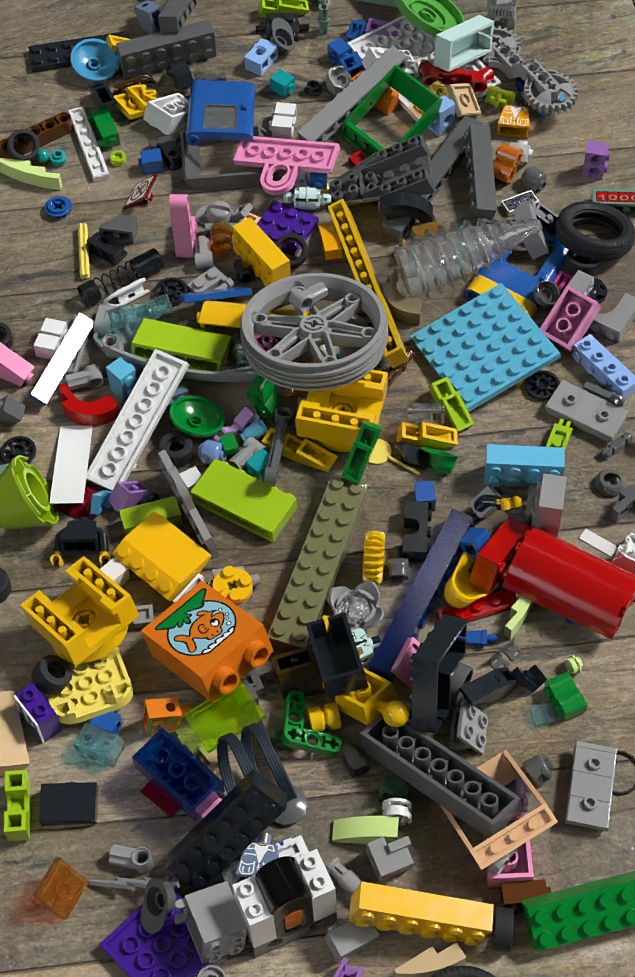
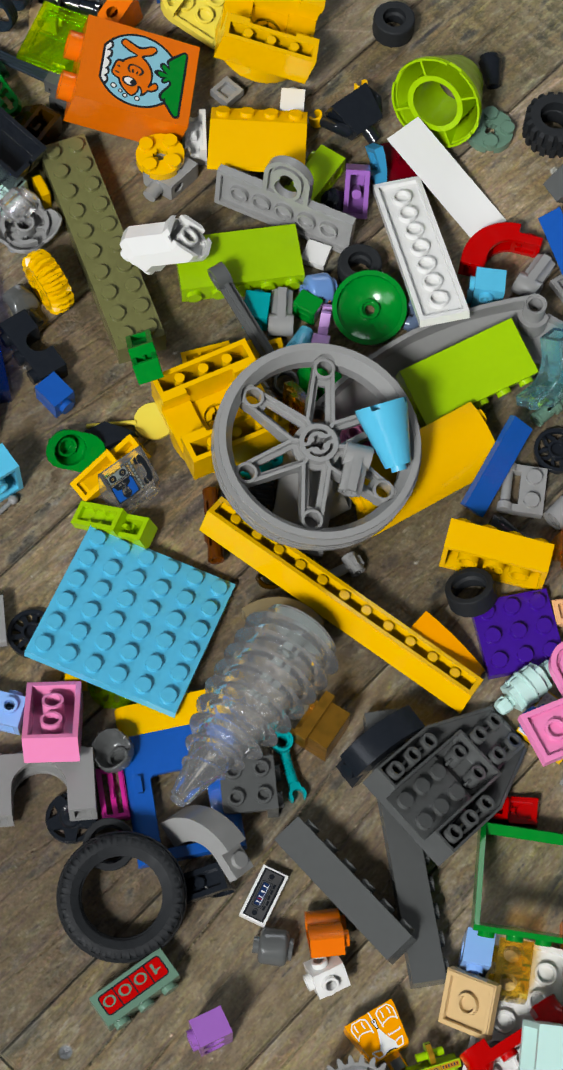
camera: 135 degrees right, 10 degrees up
(18, 449) = (515, 164): black wheel -> none
(271, 299) = (388, 432): none -> medium azure cone
(285, 518) = (164, 243): none -> white brick

